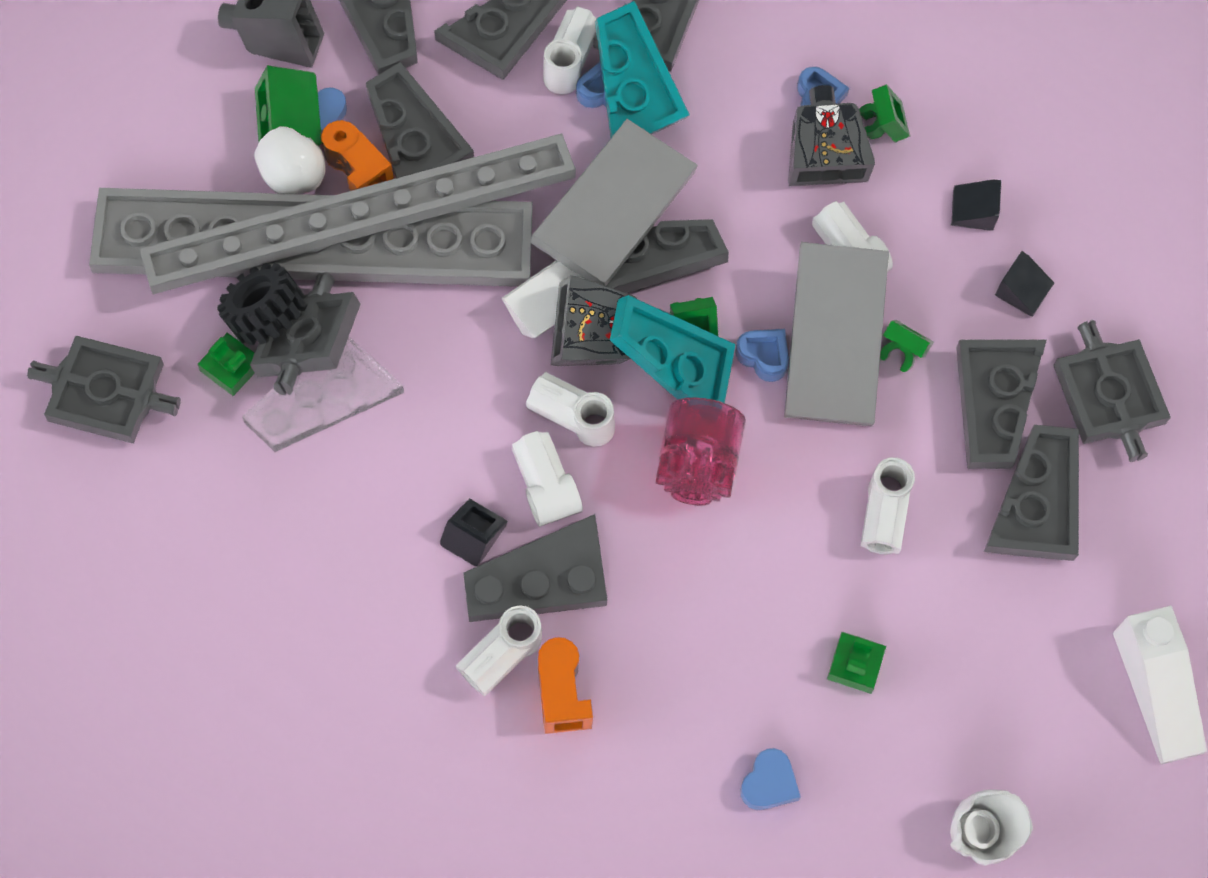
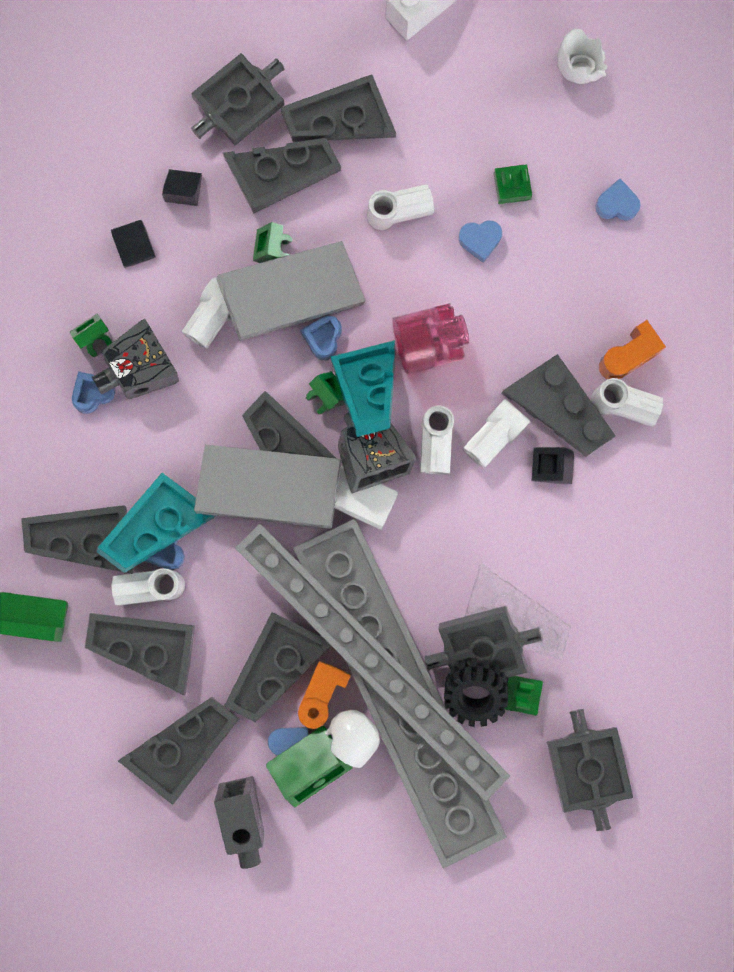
camera: 115 degrees left, 15 degrees up
(801, 587) = (480, 239): none -> medium blue tile

